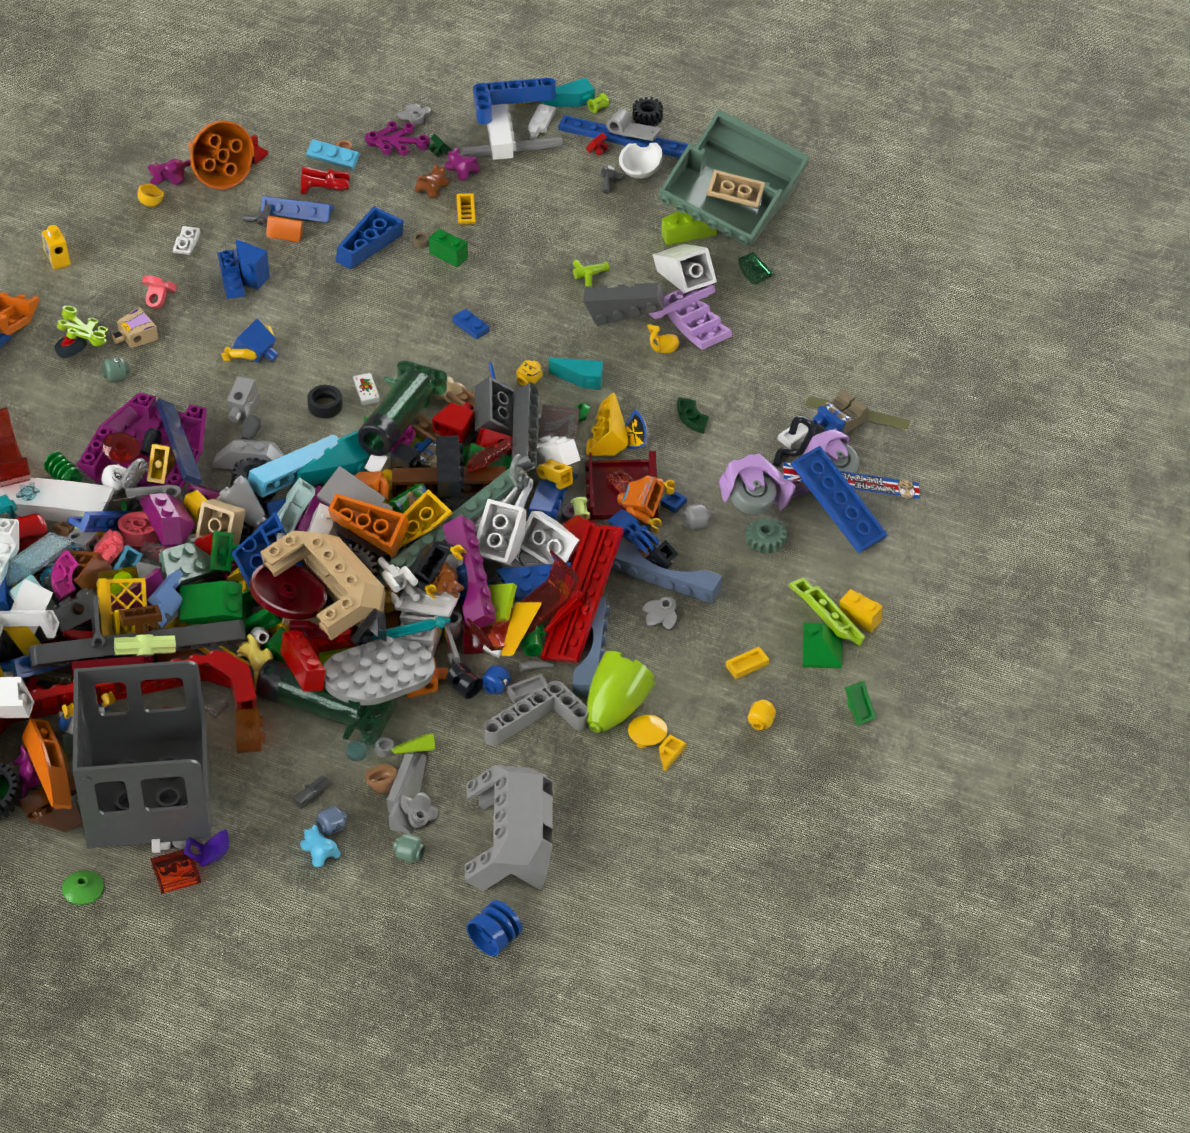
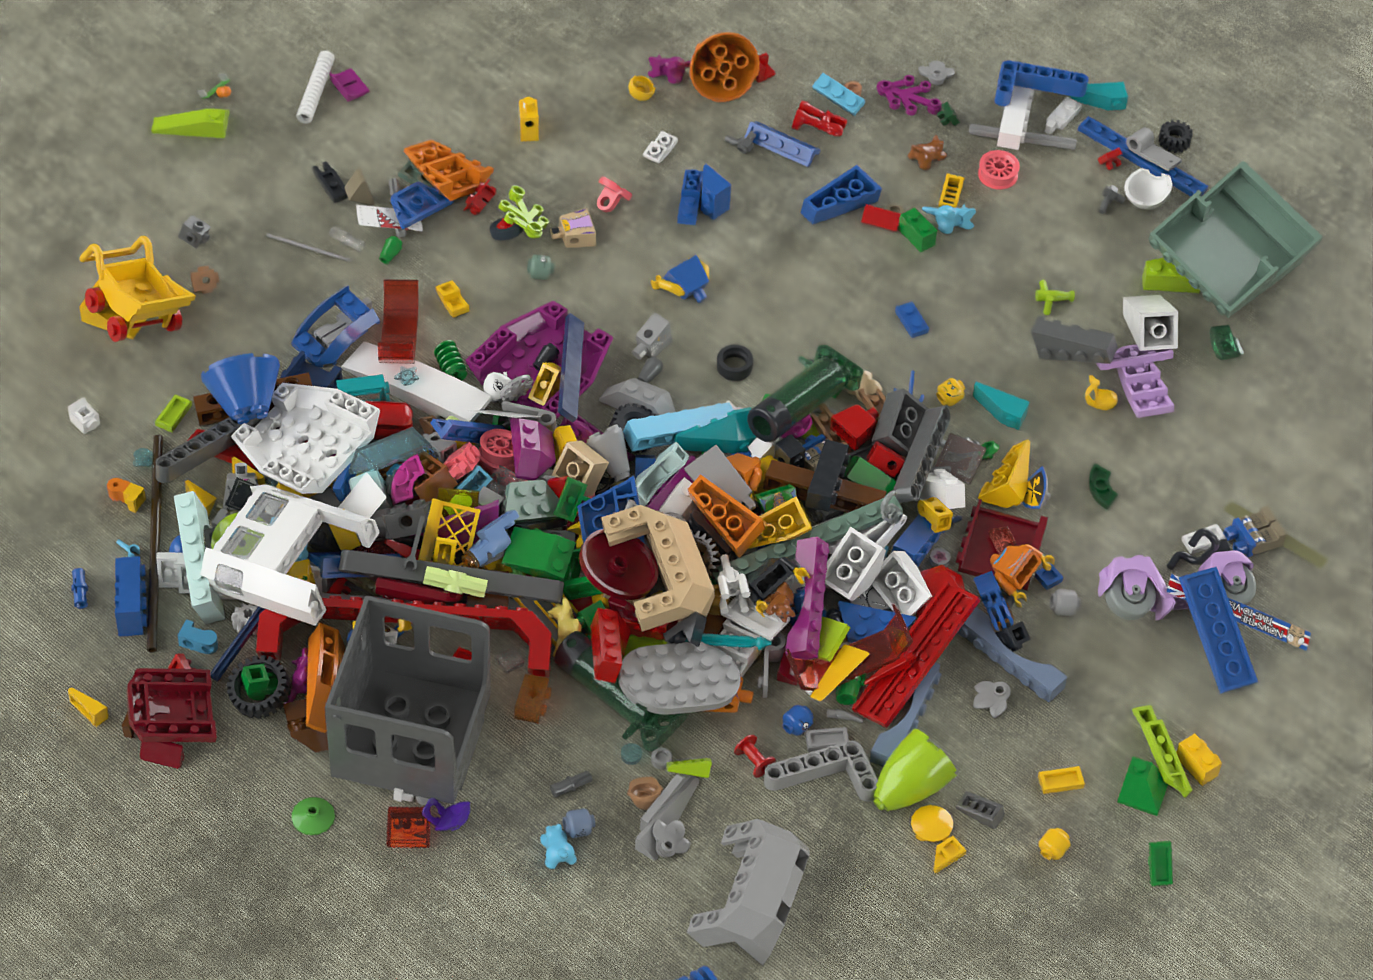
camera: 15 degrees right, 5 degrees up
(32, 331) = (475, 202): none -> red hinge
(41, 418) = (452, 299): none -> yellow slope
(120, 447) = (514, 348): clear red dish -> none
(140, 617) = (459, 552): reddish brown tile -> none
(256, 633) = (577, 597): white cone -> none
(284, 229) = (761, 162): orange slope -> none
(366, 389) = (781, 360): white tile -> none
(409, 848) = (645, 878): sand green head -> none
(411, 247) = (881, 218): none -> red tile
(459, 714) = (747, 747): none -> red piece
(461, 164) = (964, 141): magenta animal -> none
(464, 681) = (764, 712): black wheel -> none
(473, 229) = (948, 217): none -> medium azure animal
(488, 455) = (873, 475): clear red hinge -> none
(501, 179) = (998, 169): none -> coral wheel
(579, 506) = (949, 557): yellowish green bush -> none
(594, 109) = (1121, 112): lime bush -> none
(698, 703) = (994, 811): none -> flat silver slope
(736, 189) = (1231, 253): tan slope -> none
(765, 535) = (1130, 644): sand green gear -> none

